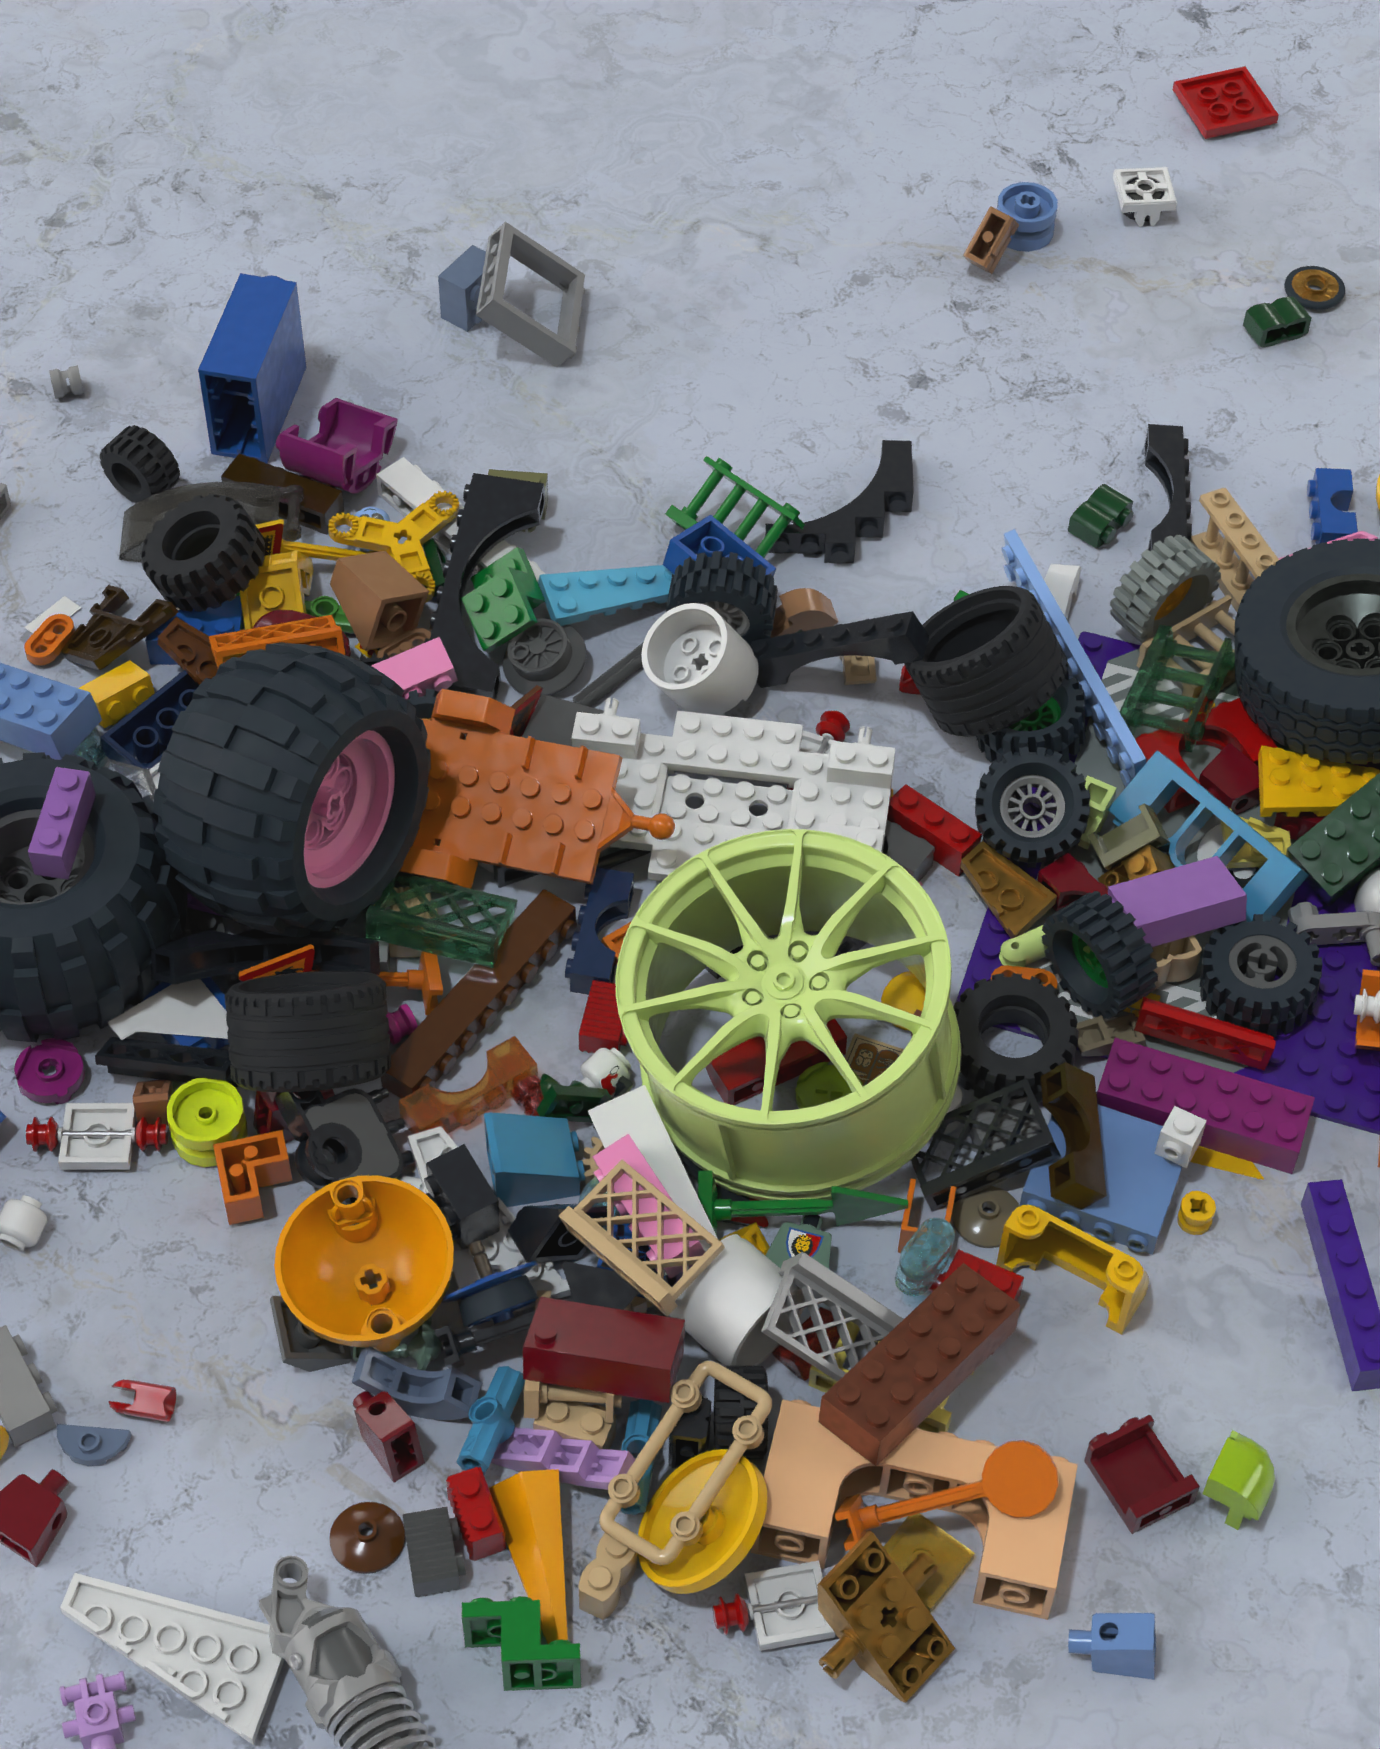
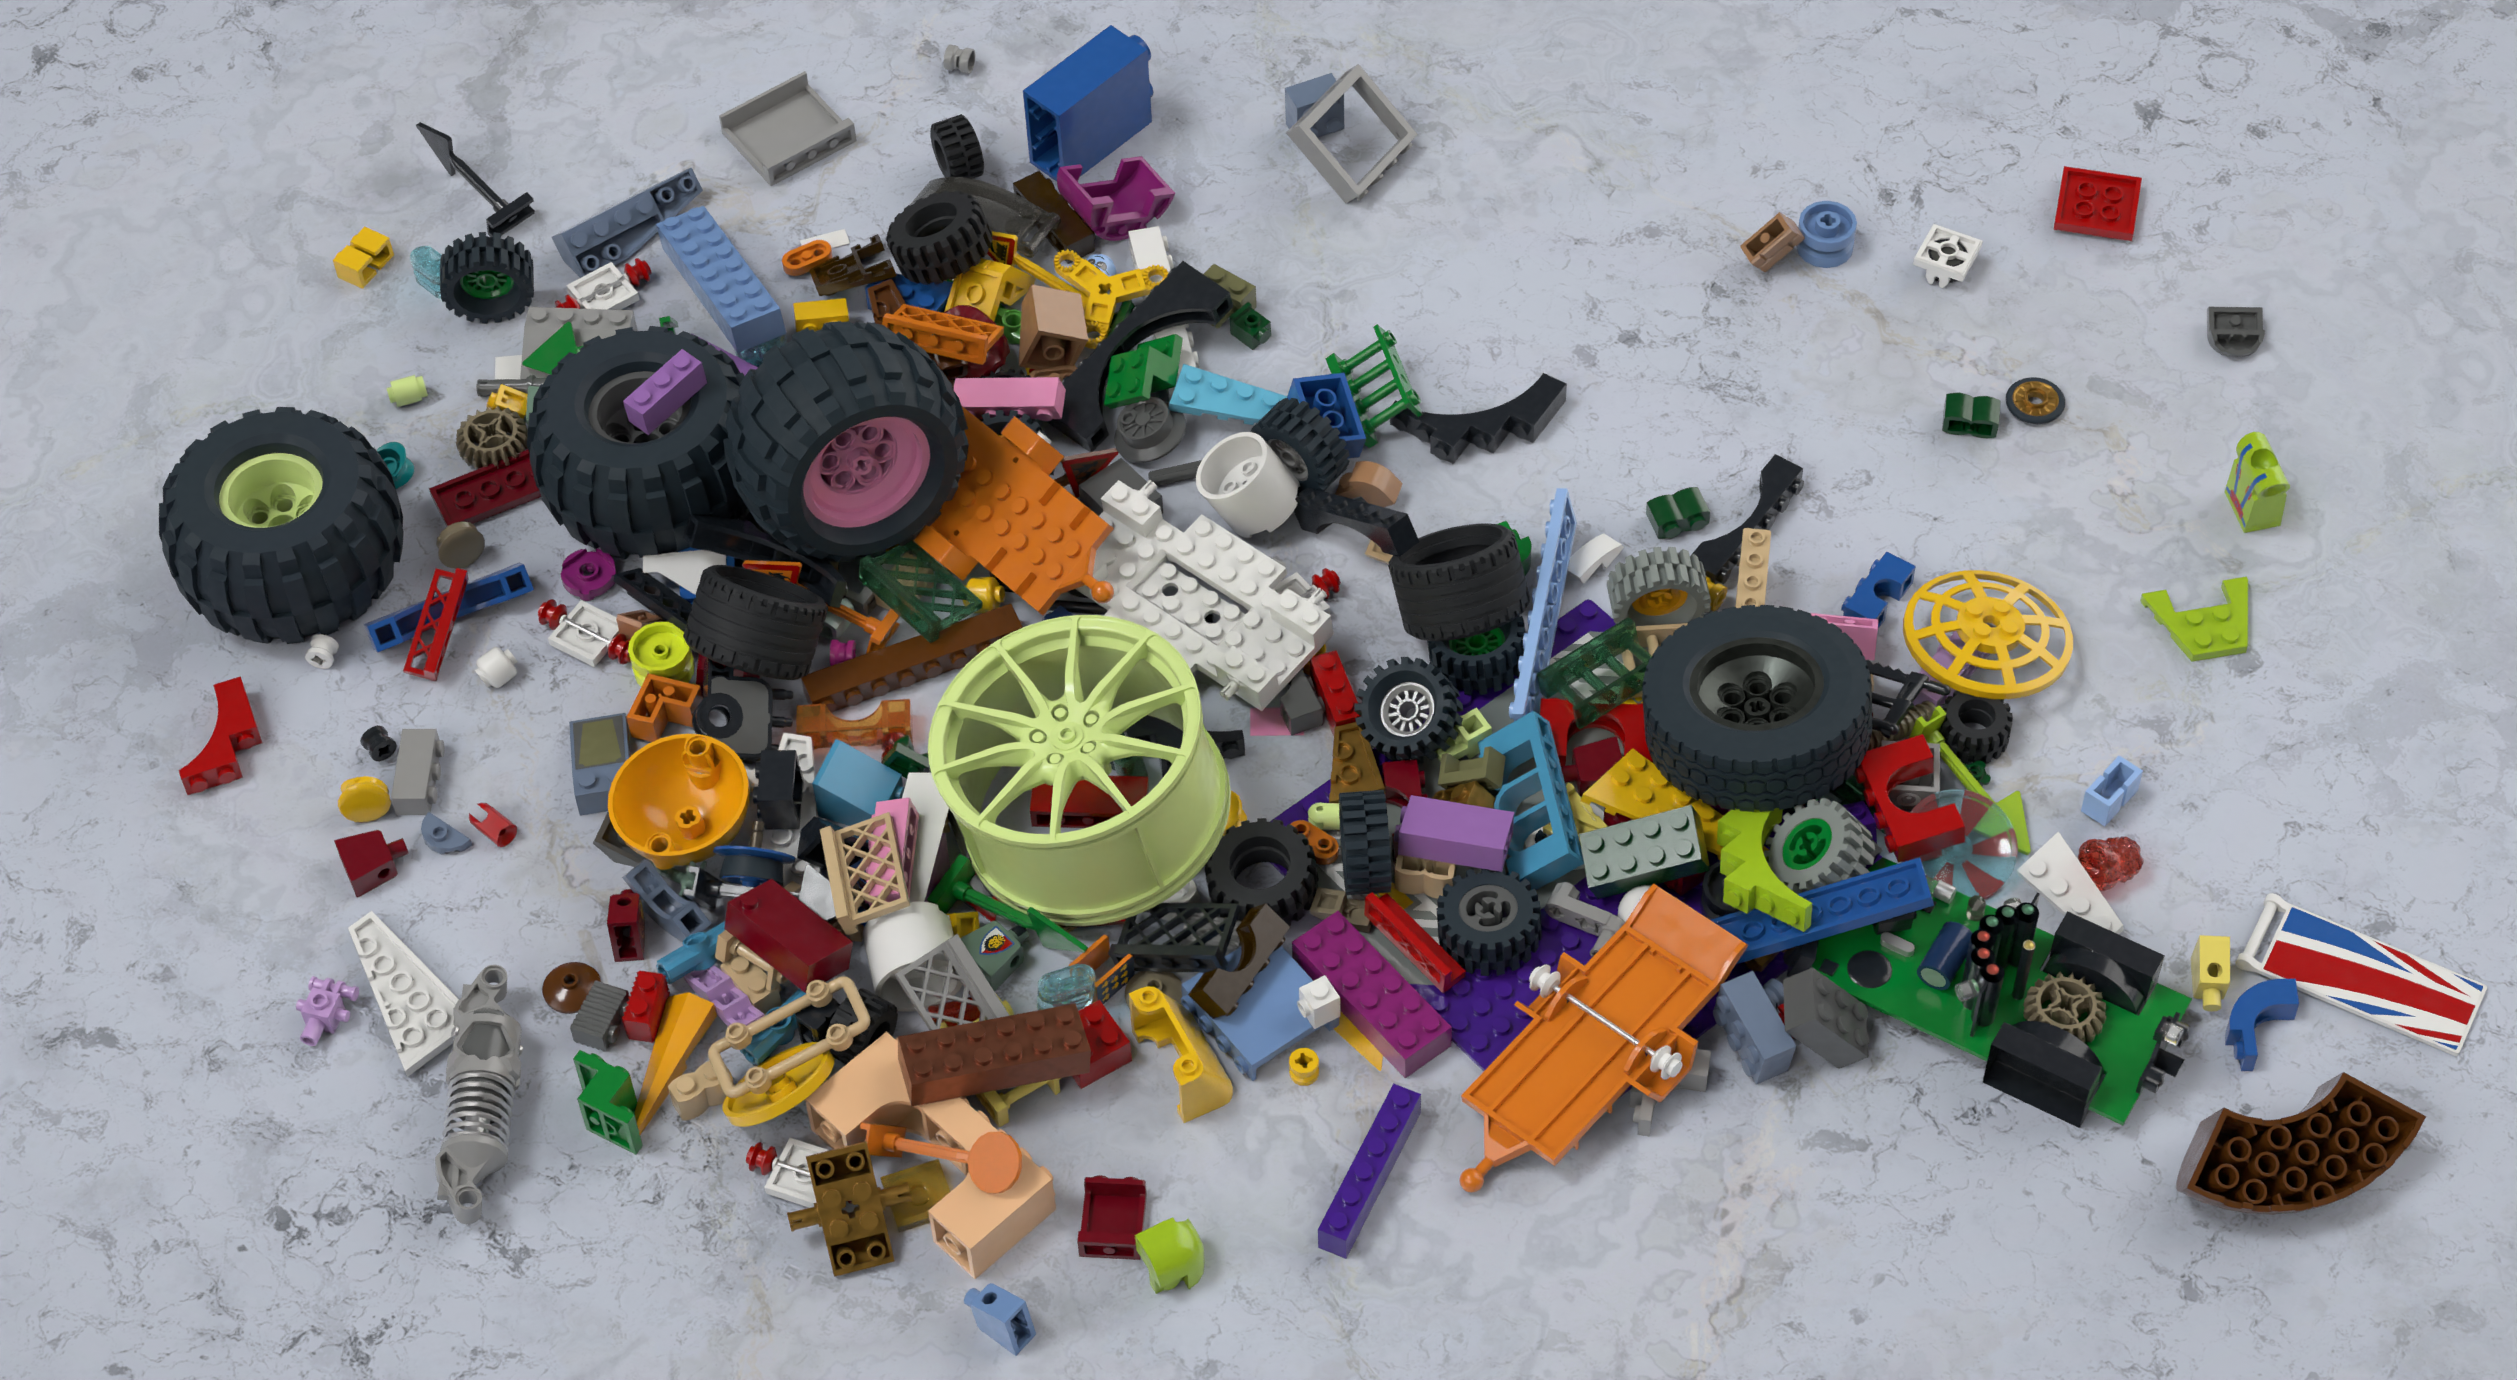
camera: 35 degrees right, 0 degrees up
(217, 1268) = (597, 754): none -> slope
(506, 886) = (988, 591): none -> yellow head
(563, 517) = (1250, 326): none -> dark green brick

